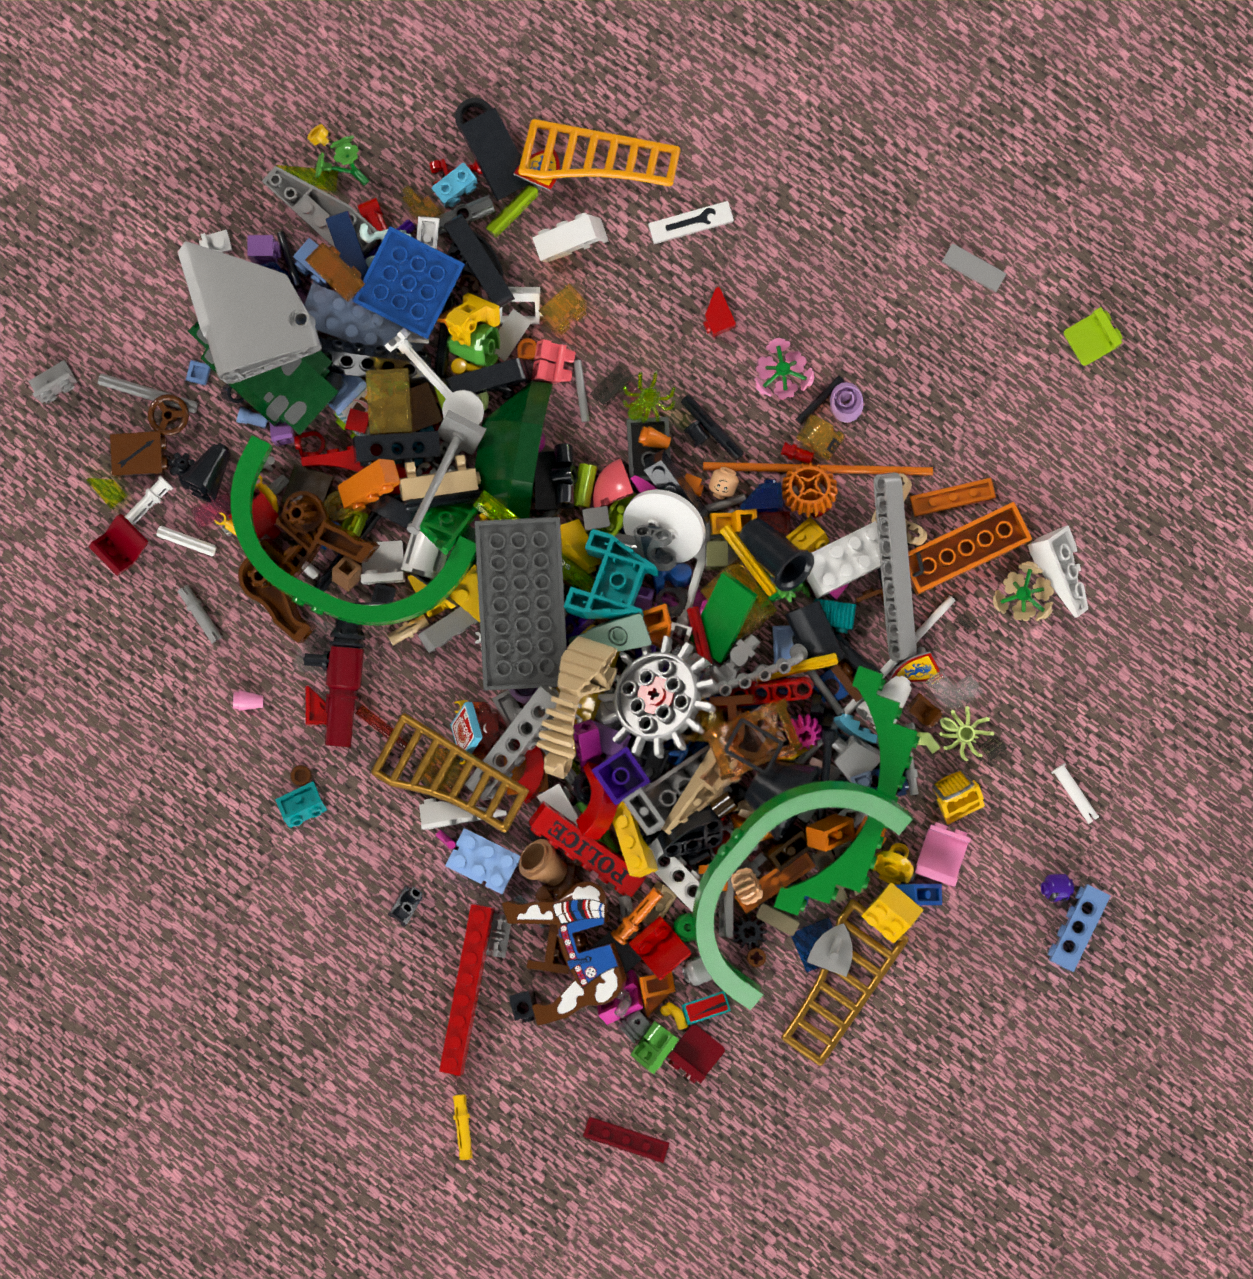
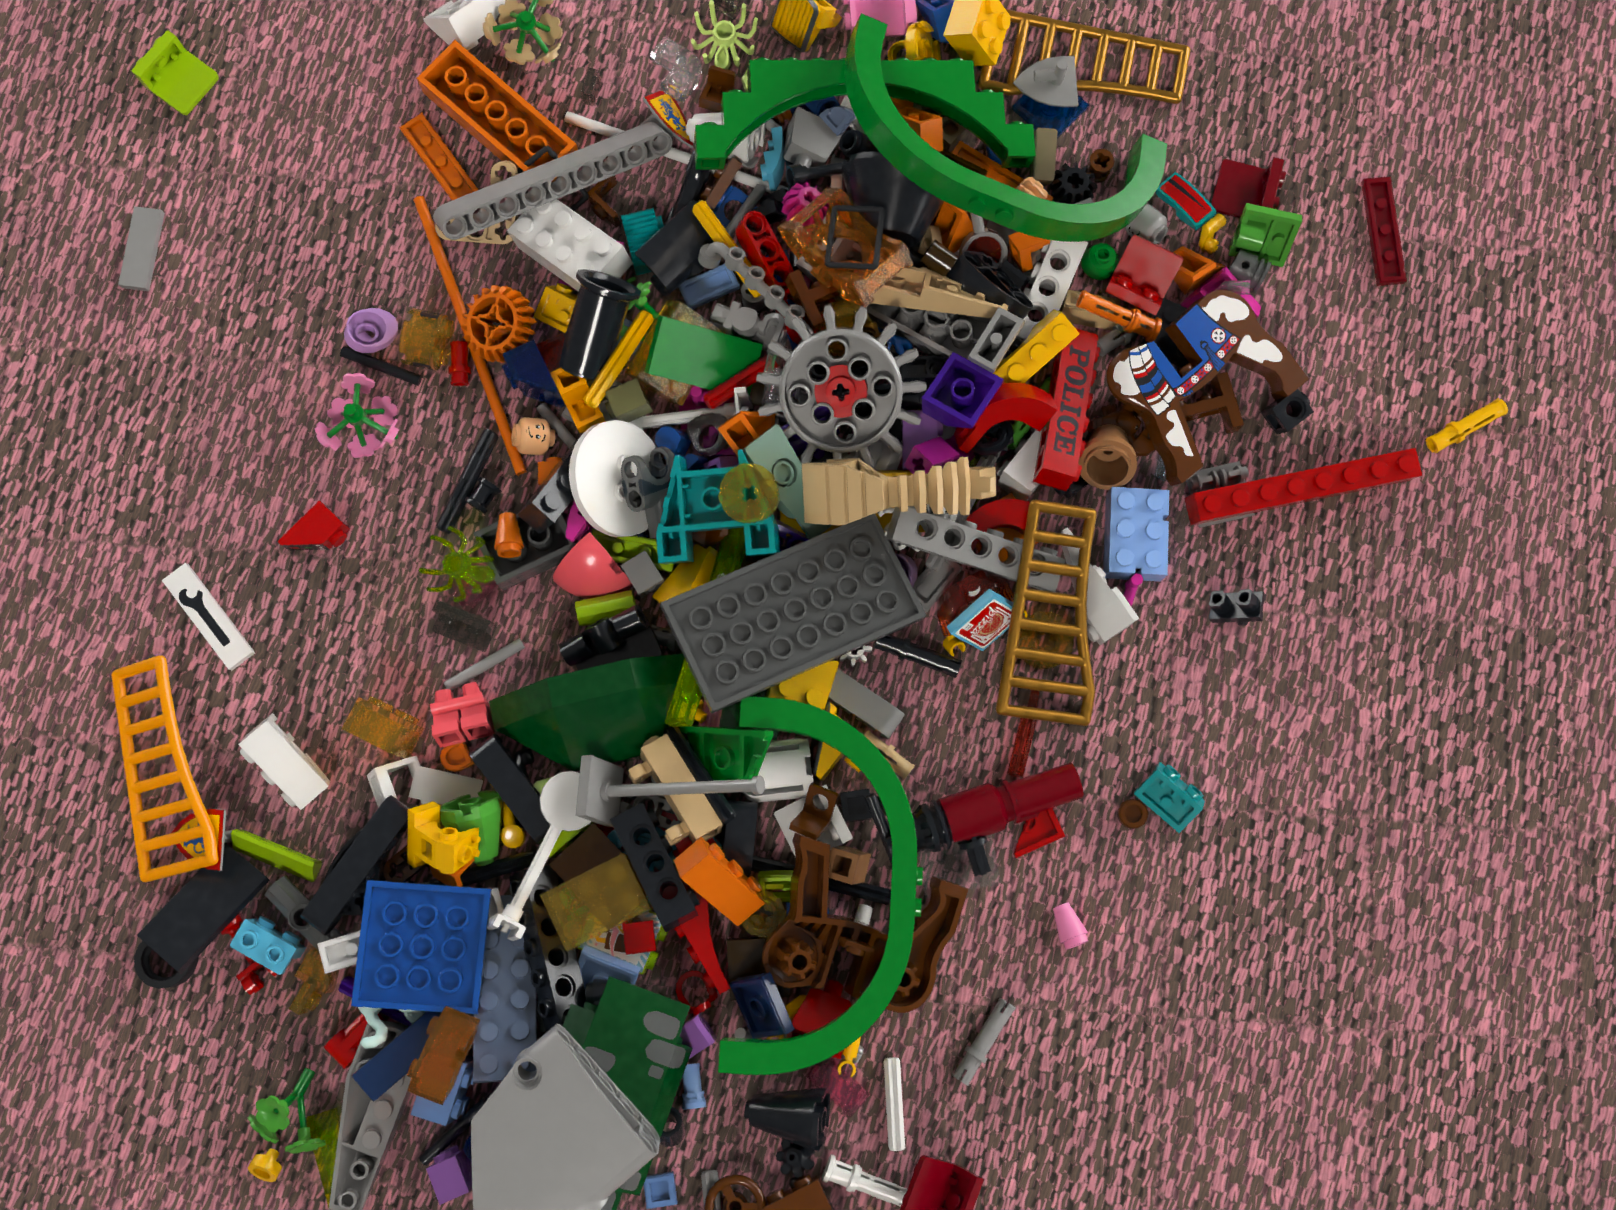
camera: 120 degrees left, 5 degrees down
(282, 480) = (761, 1005): none -> dark blue tile
(383, 560) = (811, 820): none -> reddish brown bracket
(472, 672) = (923, 656): none -> black pin
(619, 608) = (743, 477): none -> clear yellow plate

